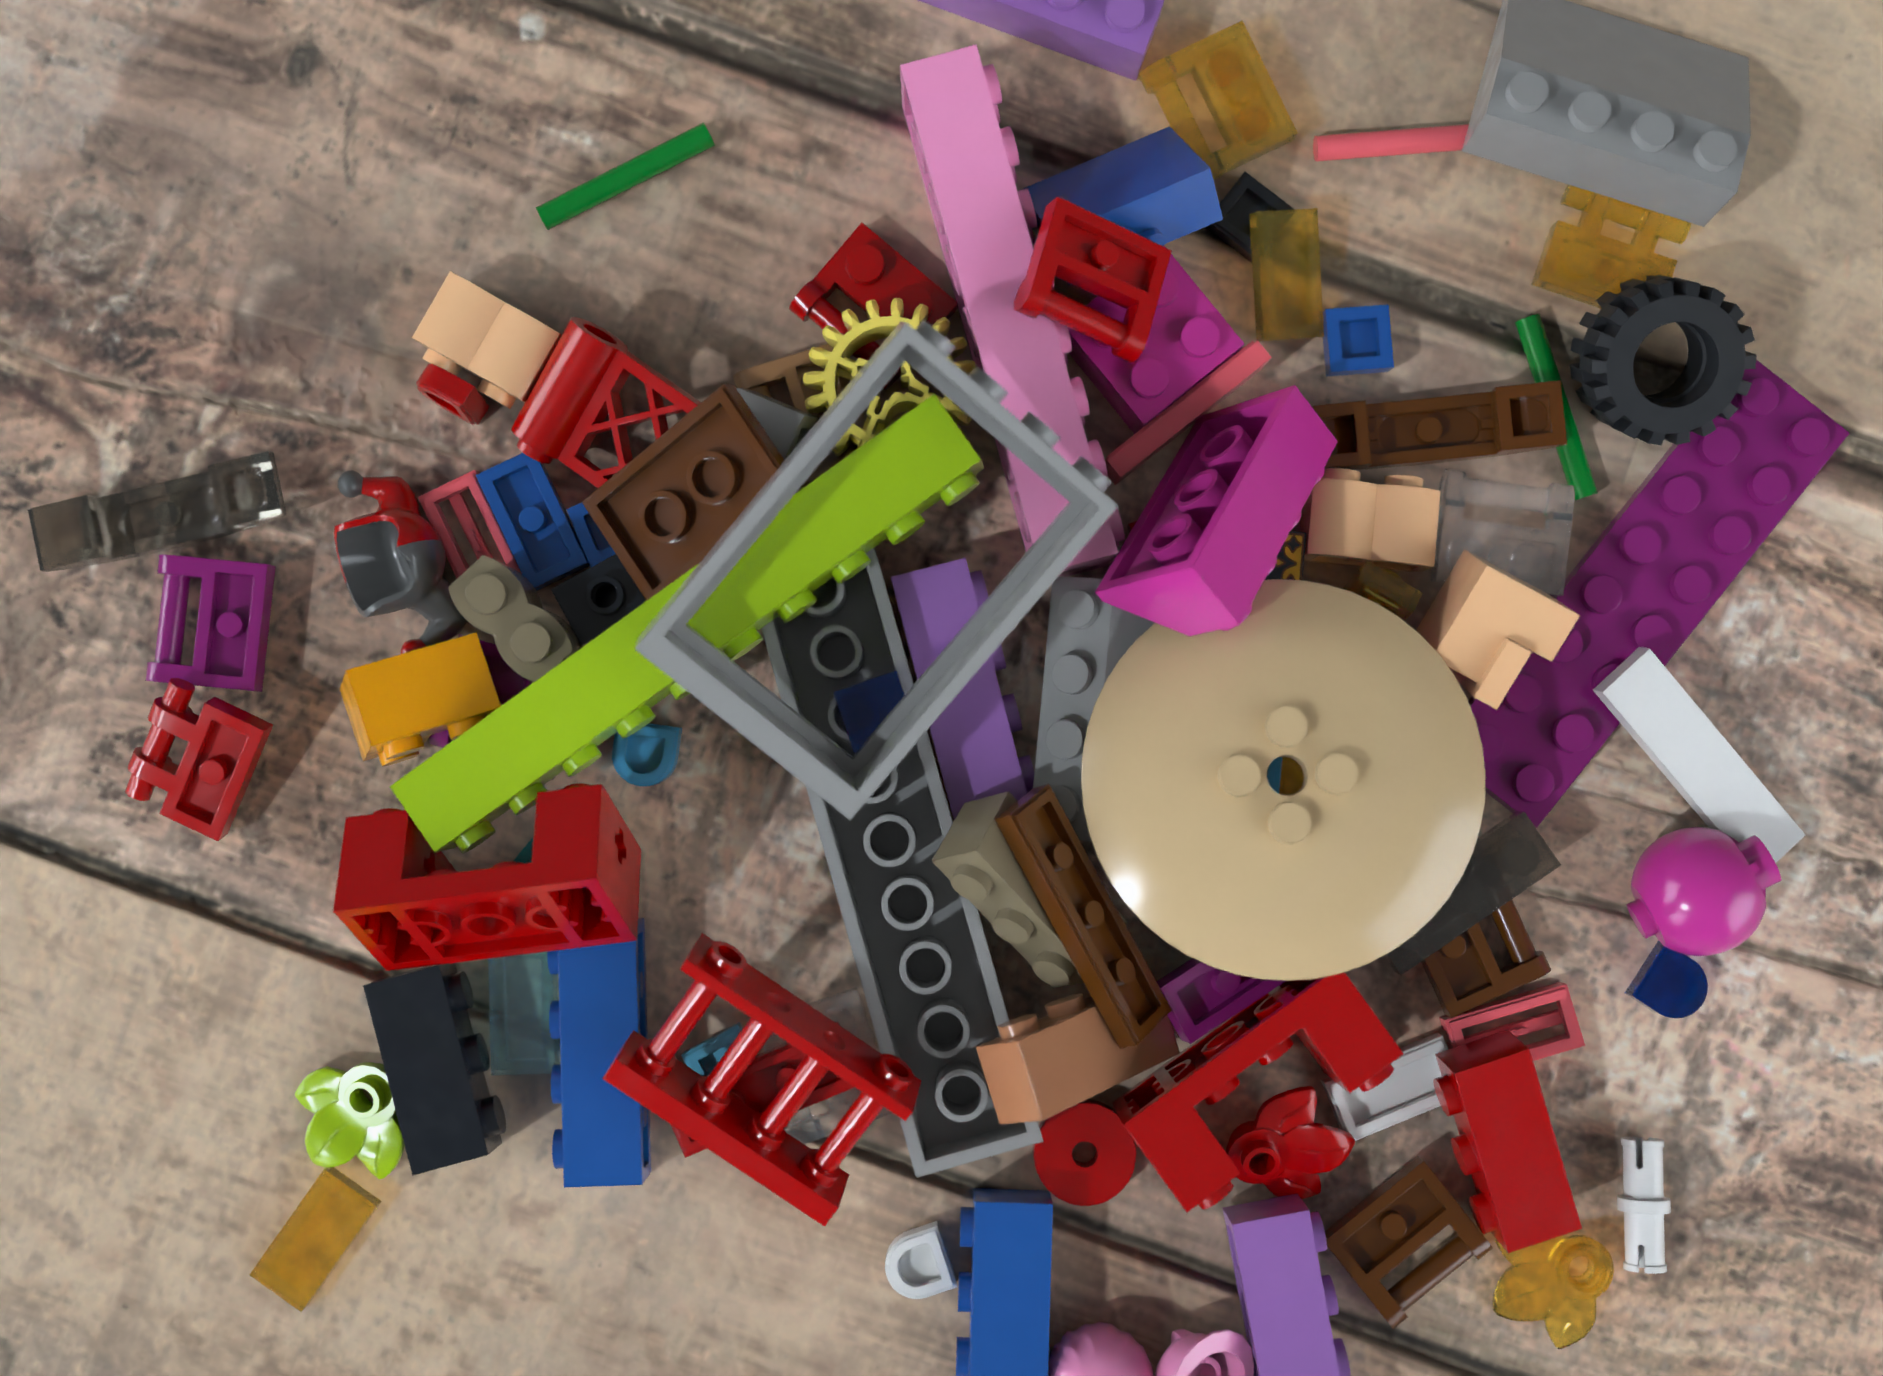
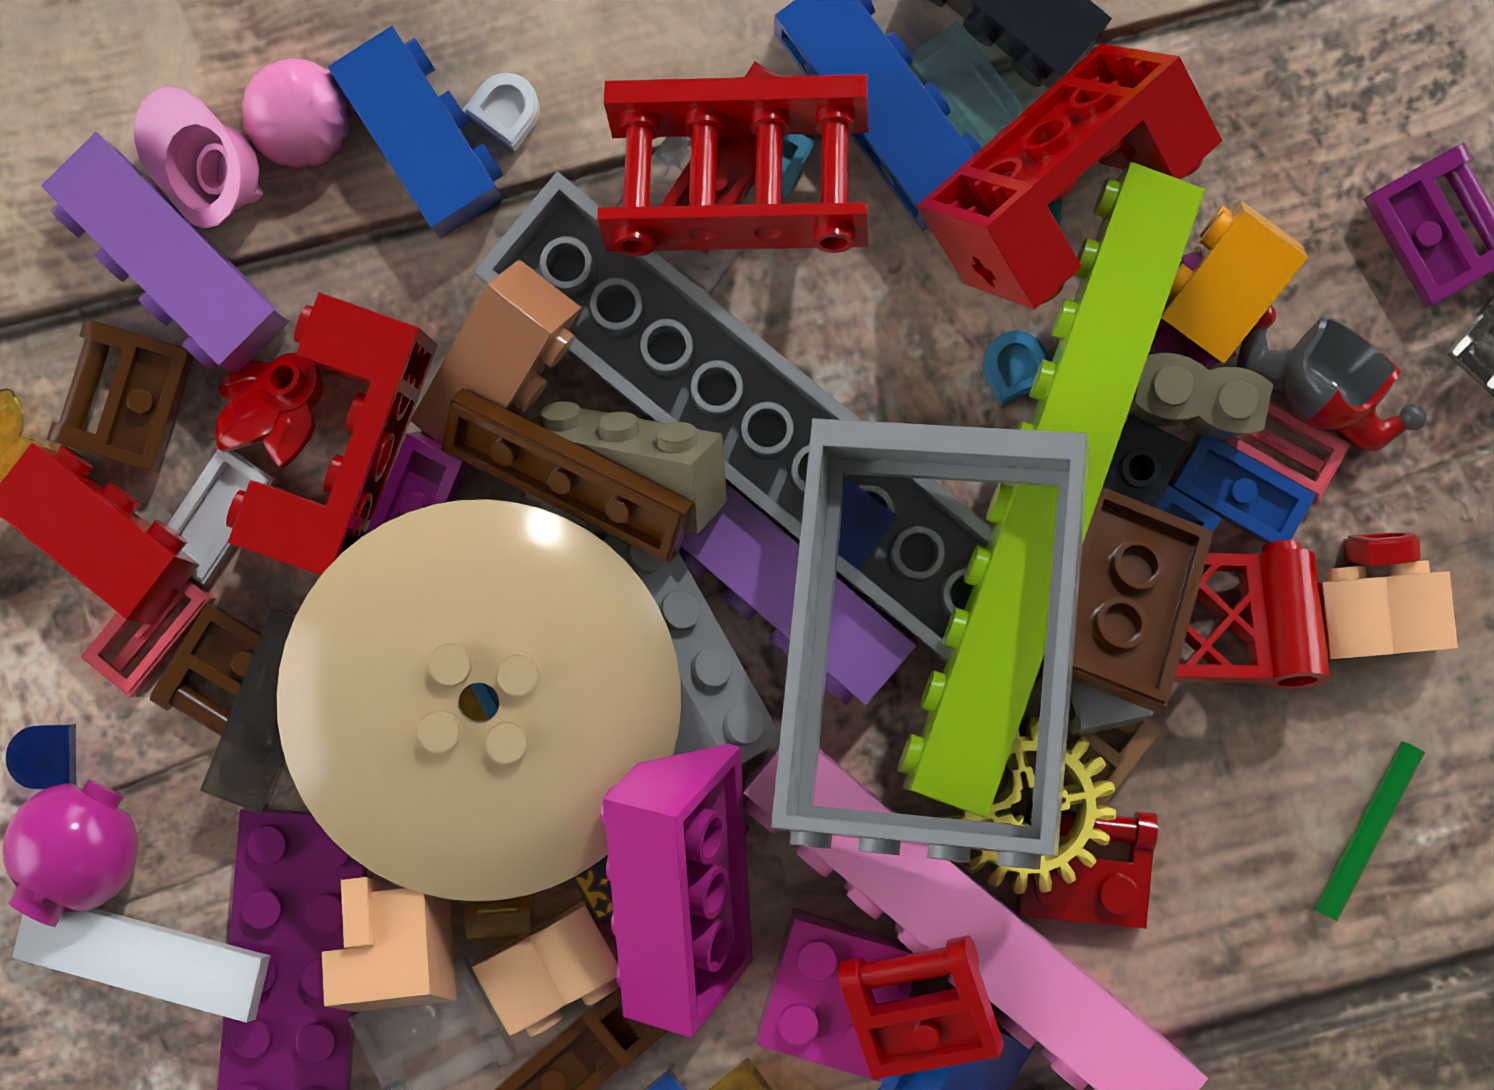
camera: 145 degrees right, 0 degrees up
(215, 764) = (1357, 111): red plate -> none
(1089, 1181) = (415, 265): red piece -> none
(1186, 411) = (766, 956): coral tile -> none

